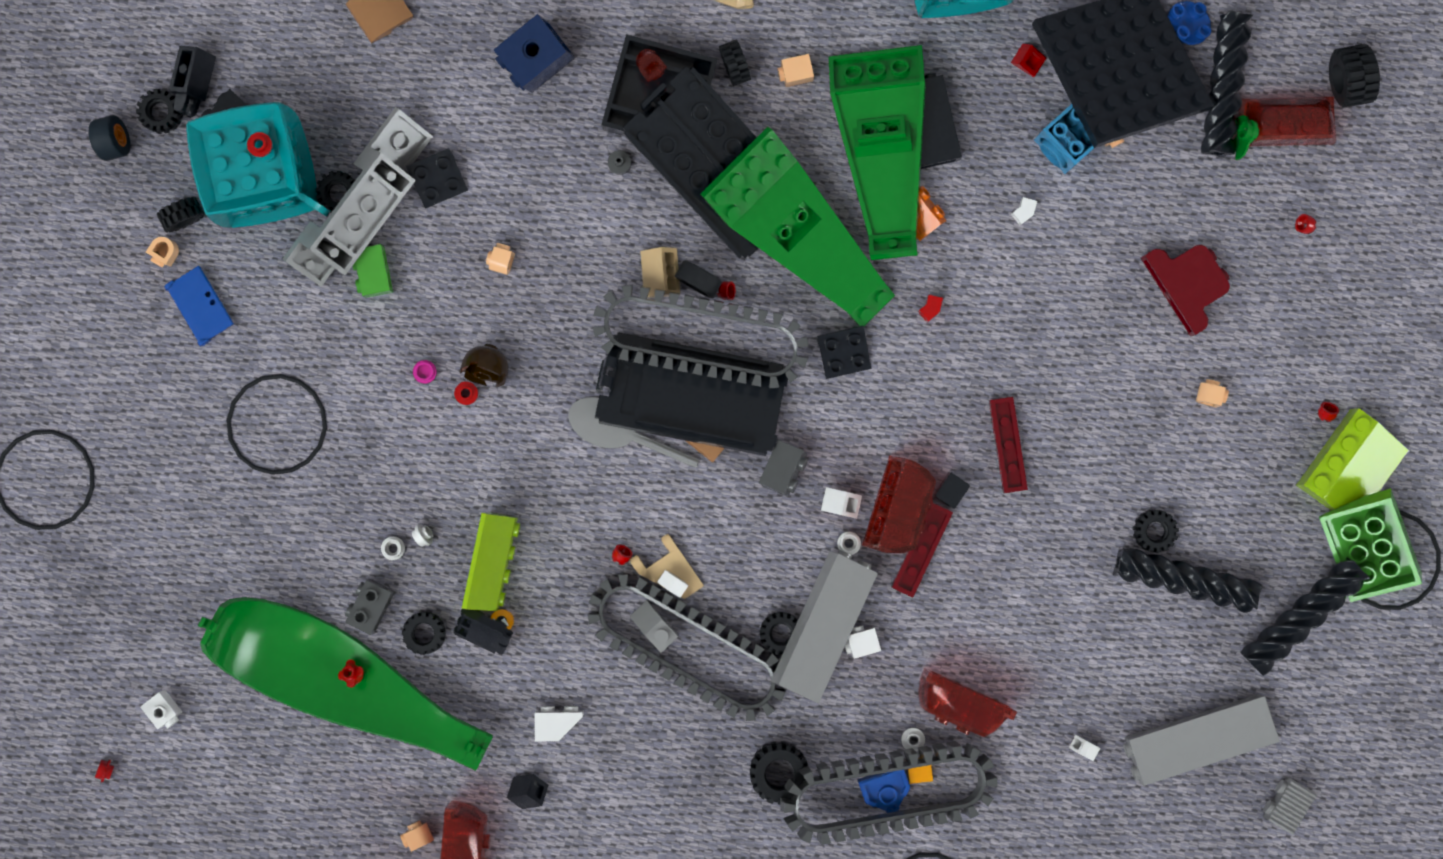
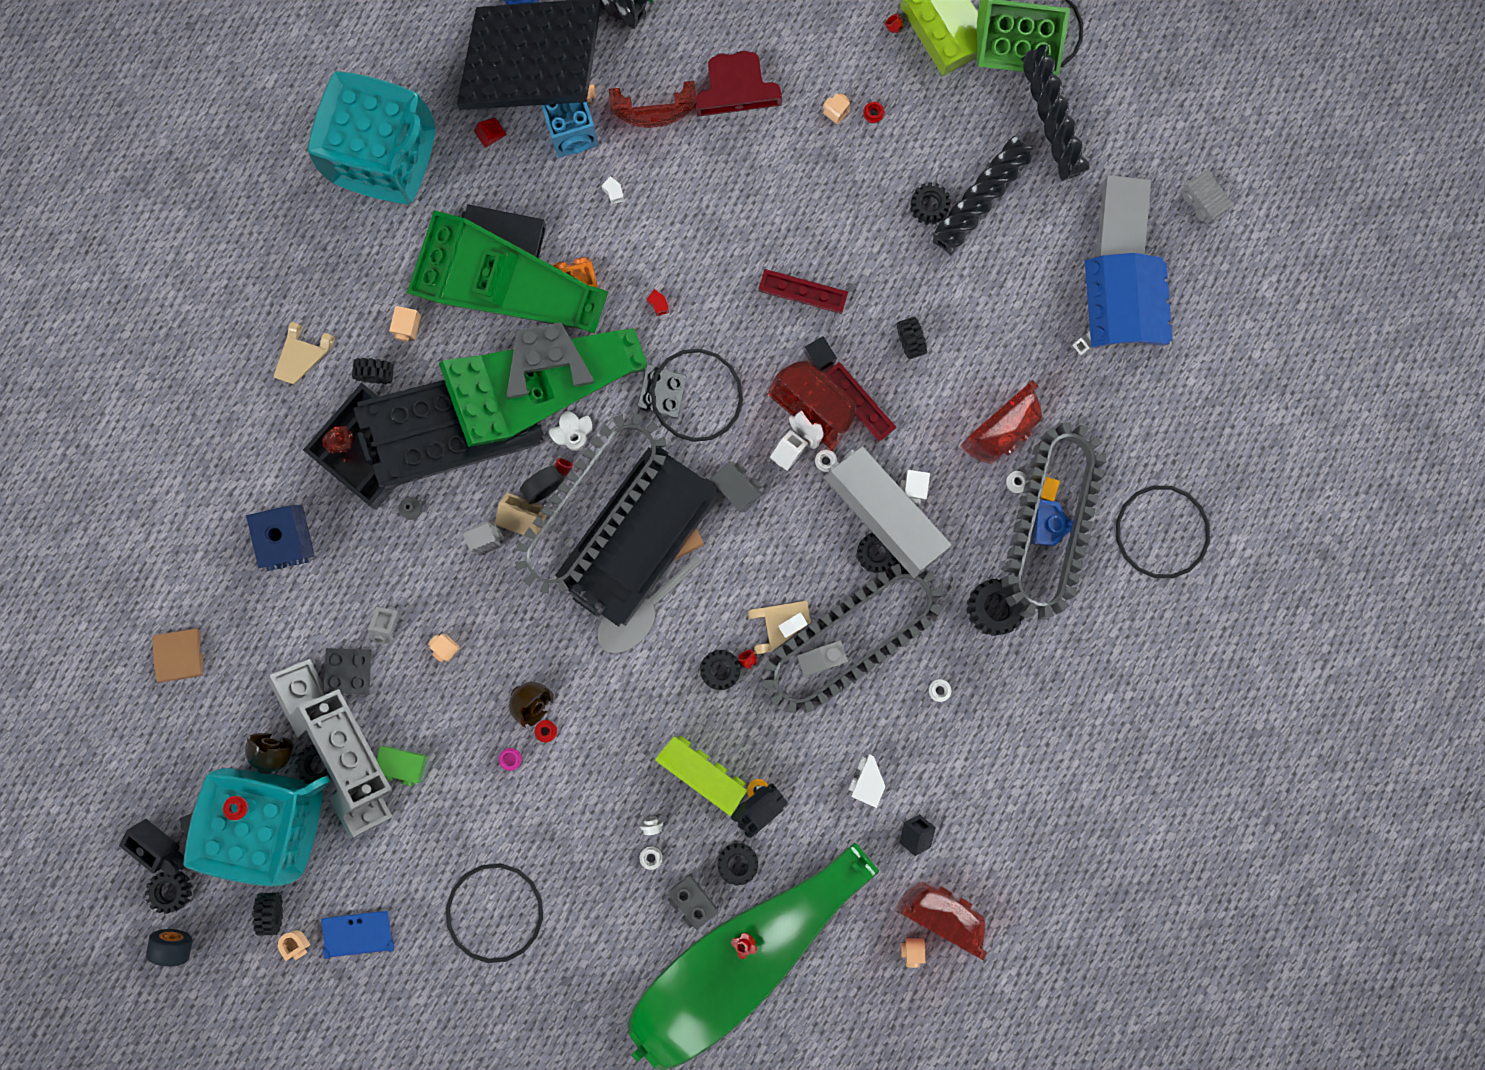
camera: 65 degrees left, 5 degrees down
(325, 138) = (265, 754): none -> dark brown cylinder
(495, 190) = (382, 625): none -> light grey bracket
(613, 533) = (710, 660): none -> black tyre
(621, 248) = (483, 538): none -> light grey brick
(675, 760) = (945, 685): none -> white plate
(768, 279) = (569, 428): none -> white plate
(830, 219) = (544, 349): none -> dark grey wing
(867, 433) = (659, 415): none -> black piece
(867, 515) = (809, 432): none -> white plate
(1008, 573) = (912, 337): none -> black tyre
(1118, 217) = (653, 115): none -> clear red windscreen
(1143, 771) = (1128, 300): none -> blue hinge
(1232, 432) = (876, 107): none -> red plate

